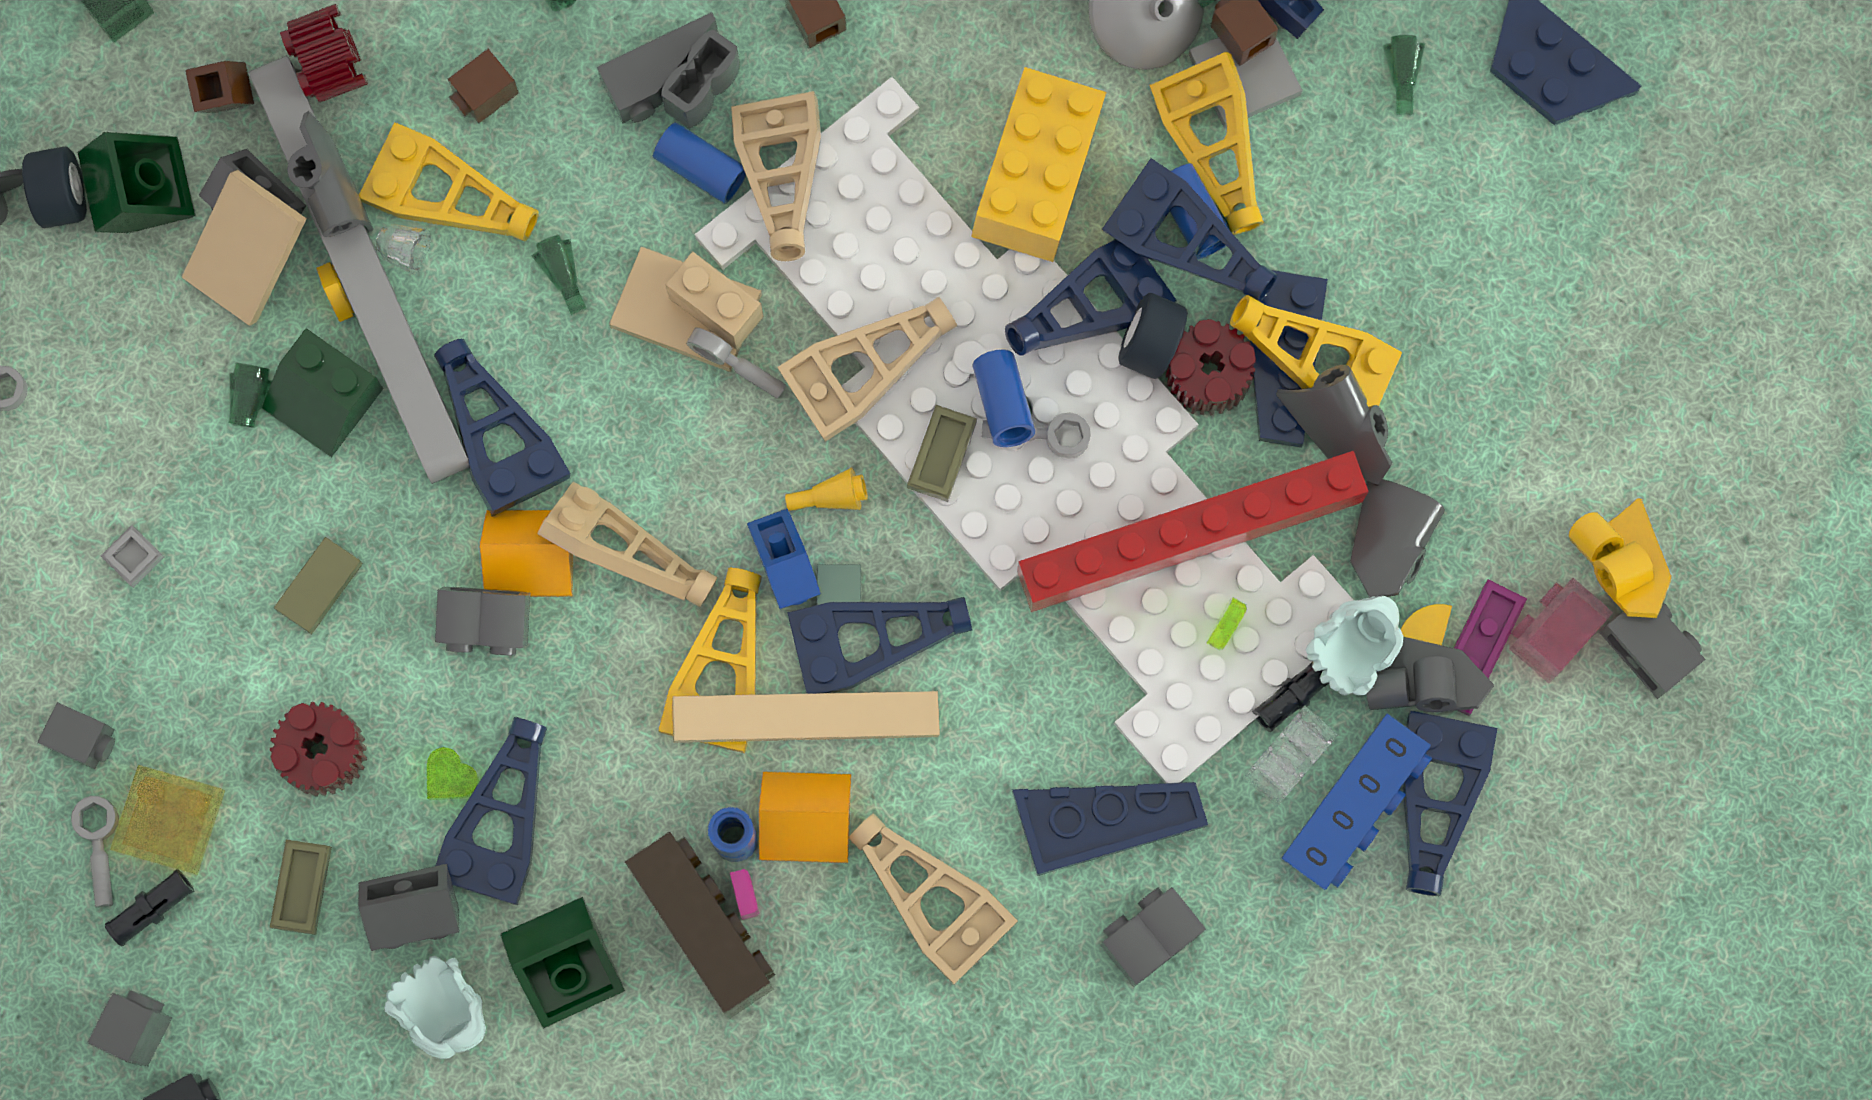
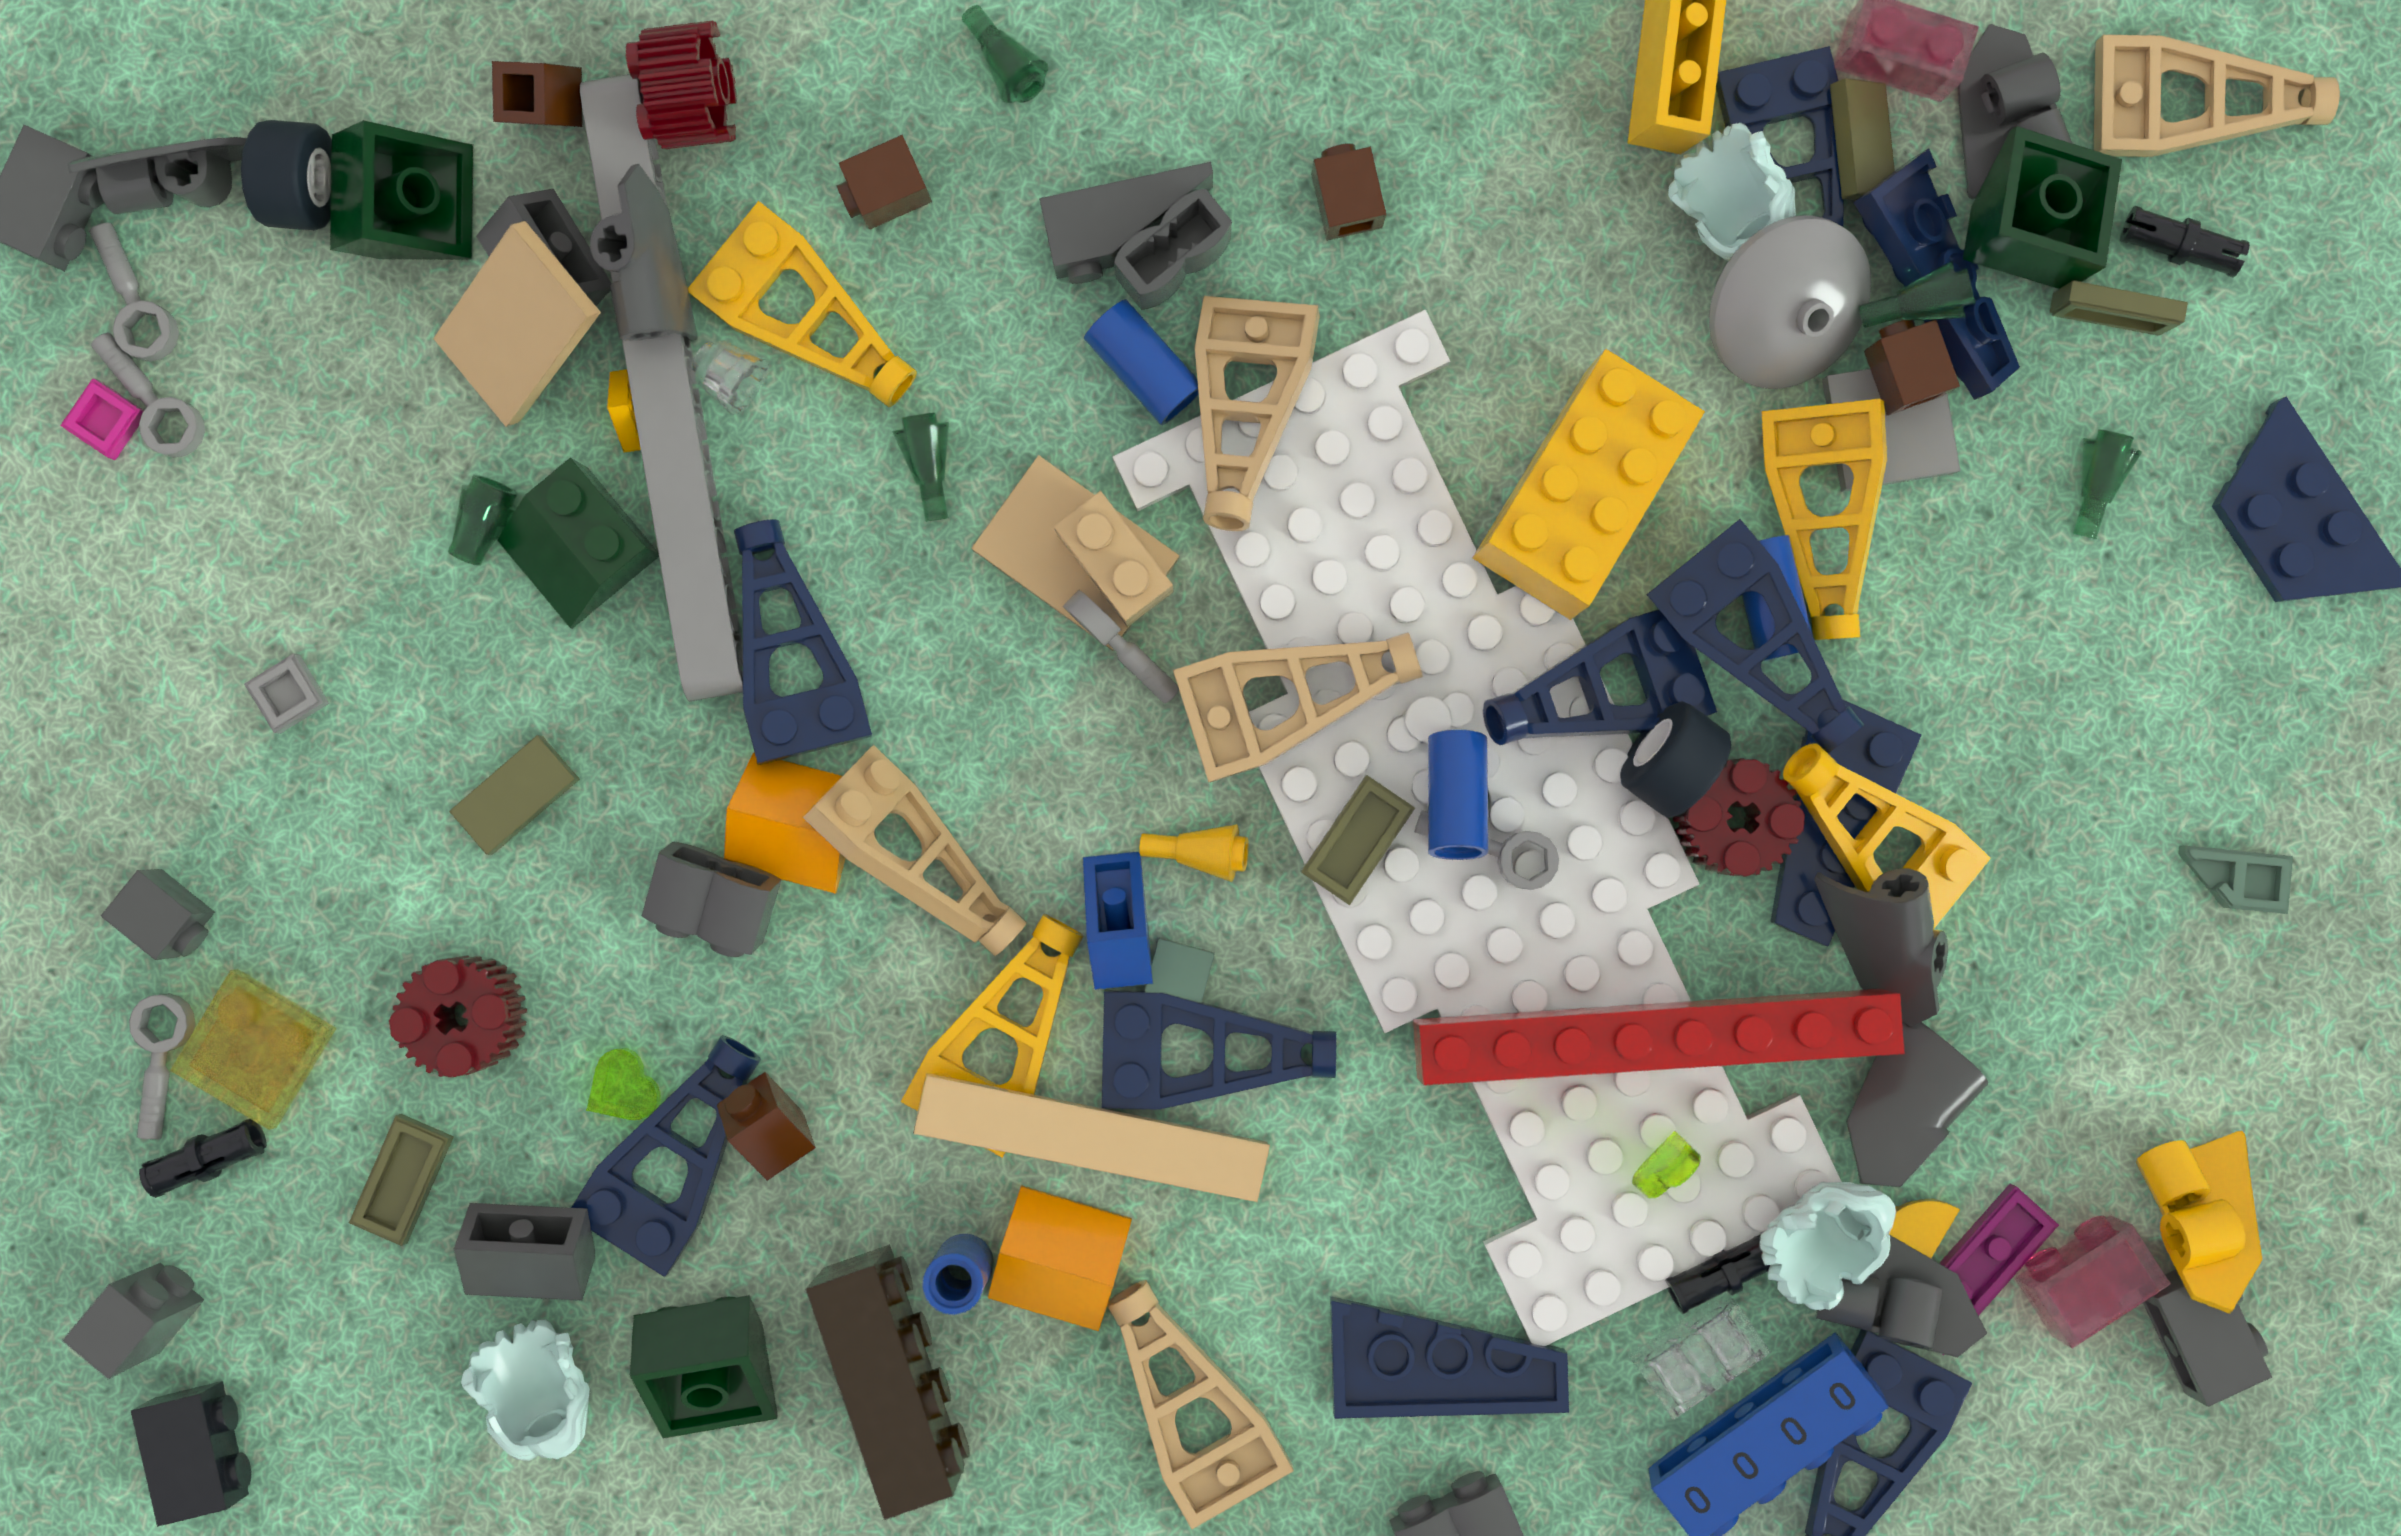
camera: 15 degrees right, 10 degrees up
(563, 768) = (765, 1126): none -> reddish brown brick
(744, 894) = (956, 1345): dark pink tile -> none
(1586, 321) = (2242, 877): none -> sand green tile

